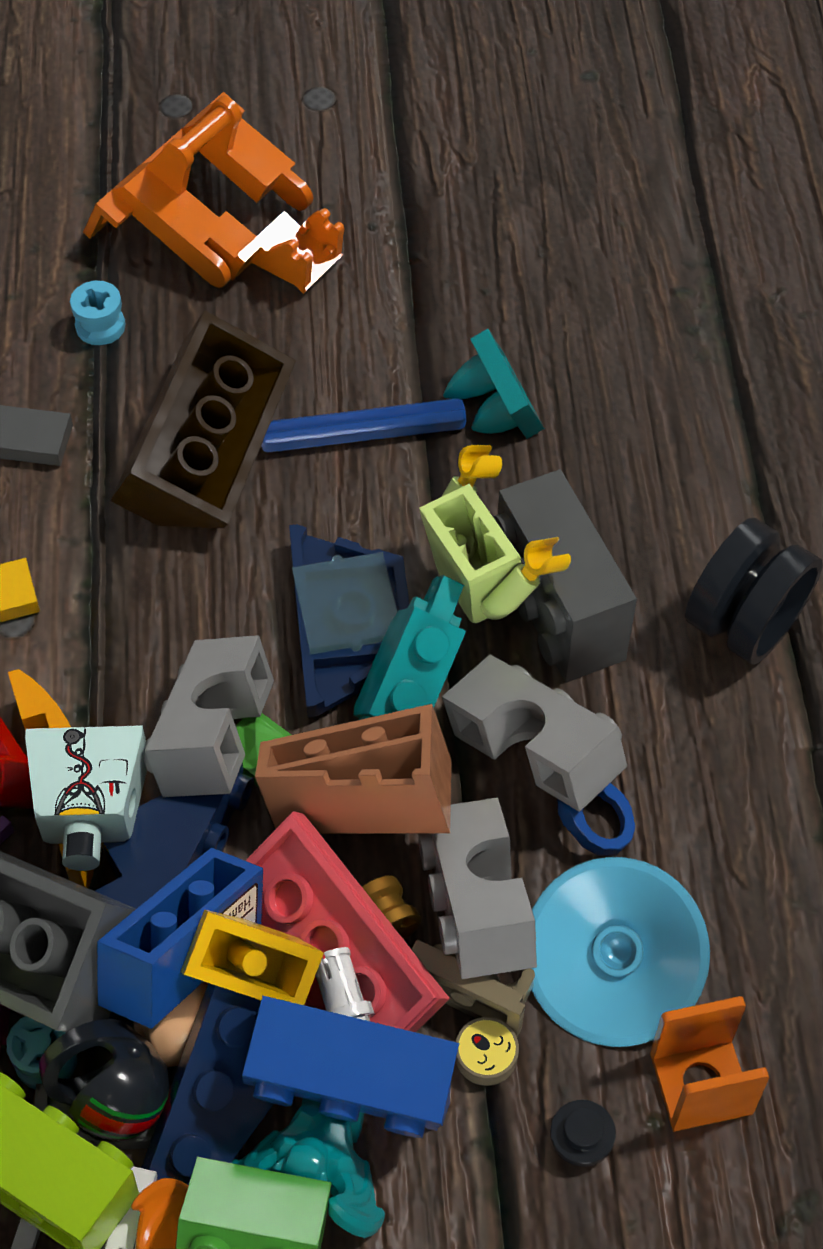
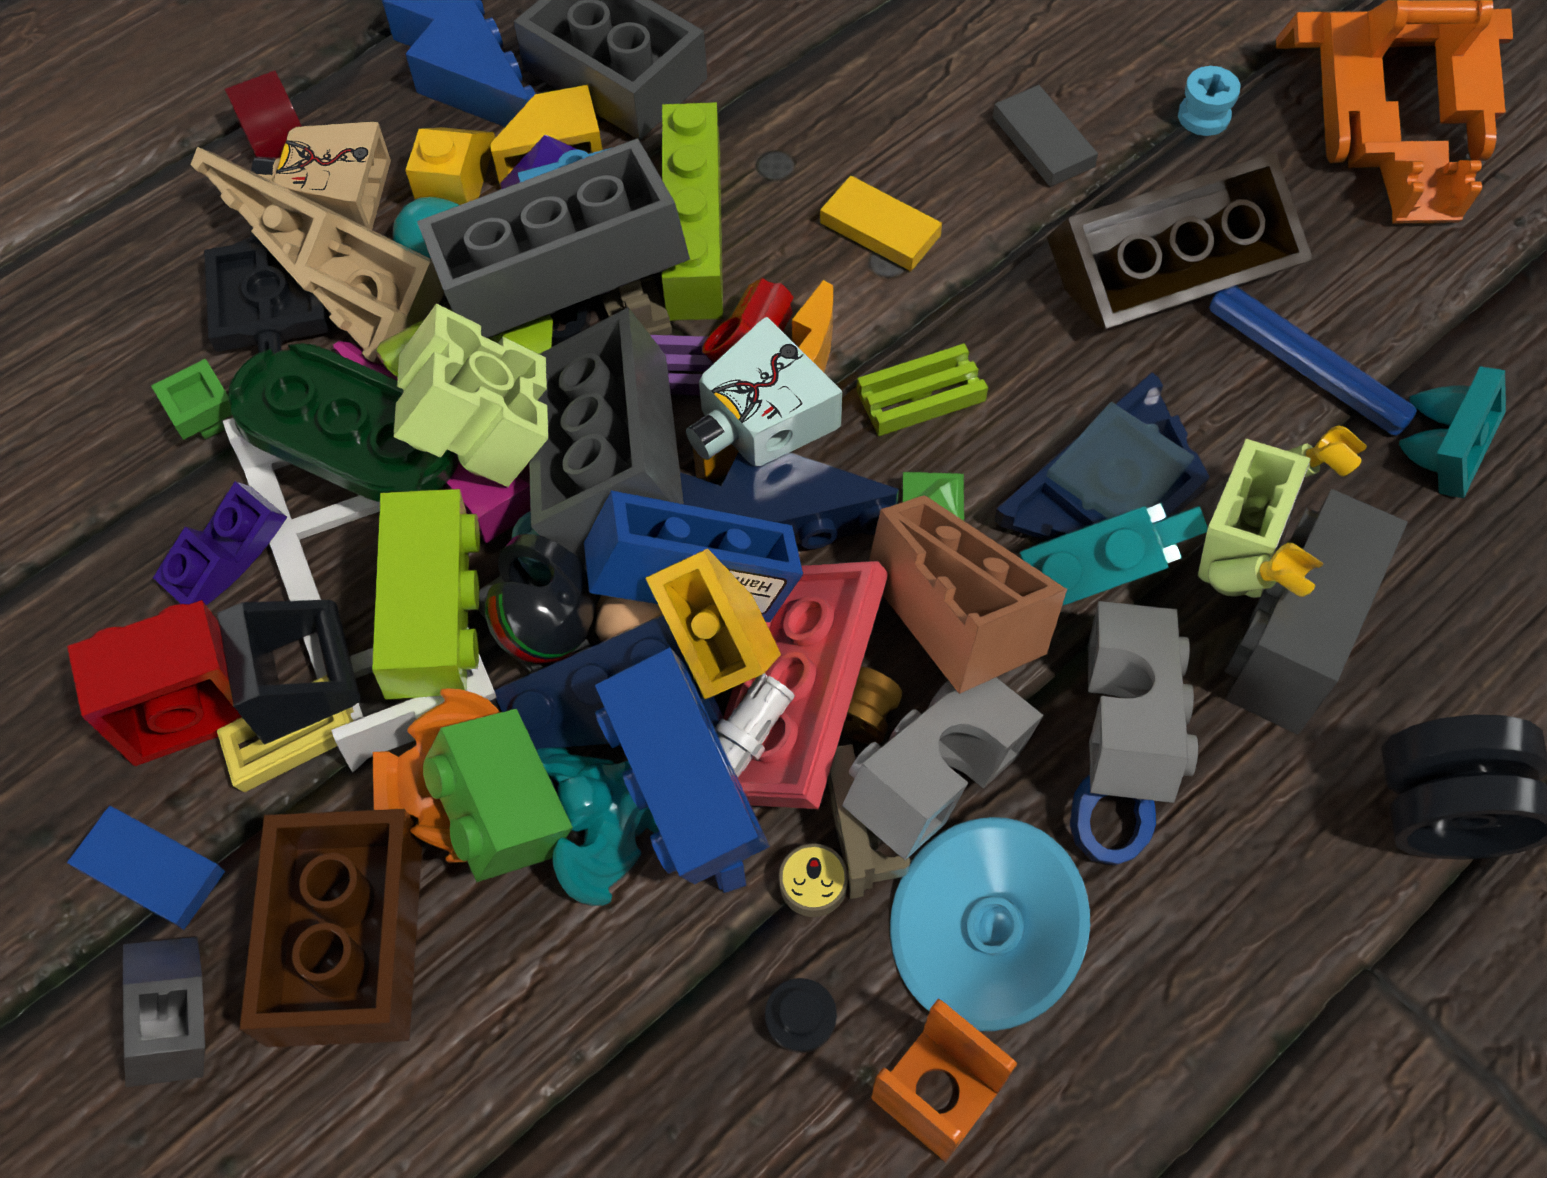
camera: 55 degrees right, 5 degrees up
(124, 694) = (916, 381): none -> lime tile
(196, 737) = (872, 443): light grey arch -> none

